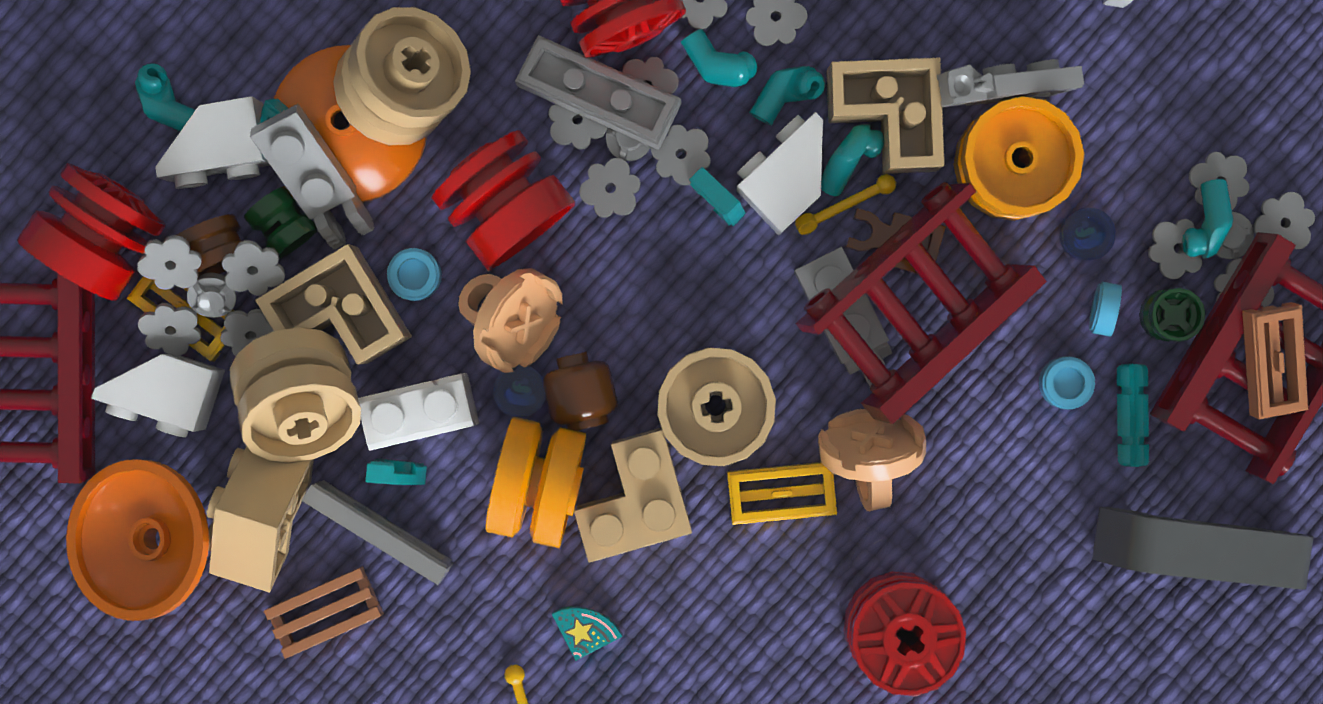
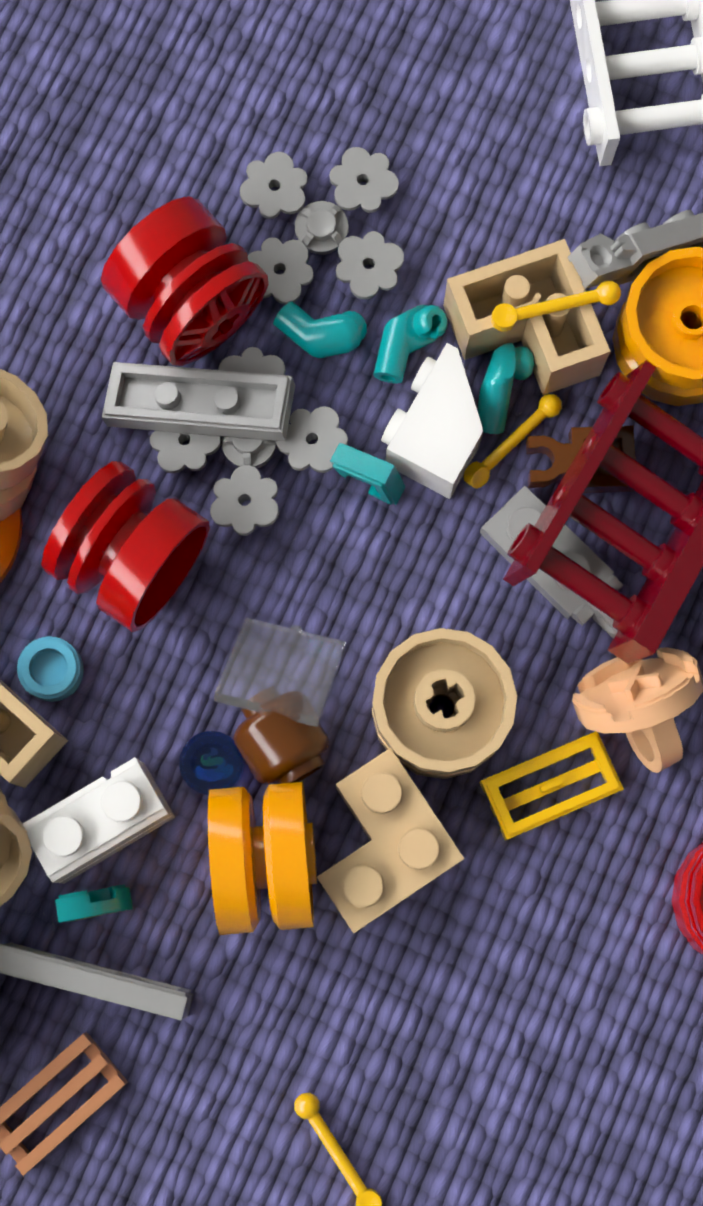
camera: 15 degrees left, 10 degrees down
(515, 318) = (174, 675): light nougat tile -> none
(585, 629) = (374, 1022): teal tile -> none
(596, 338) = (280, 671): none -> clear piece
(868, 110) = (505, 315): none -> yellow hinge

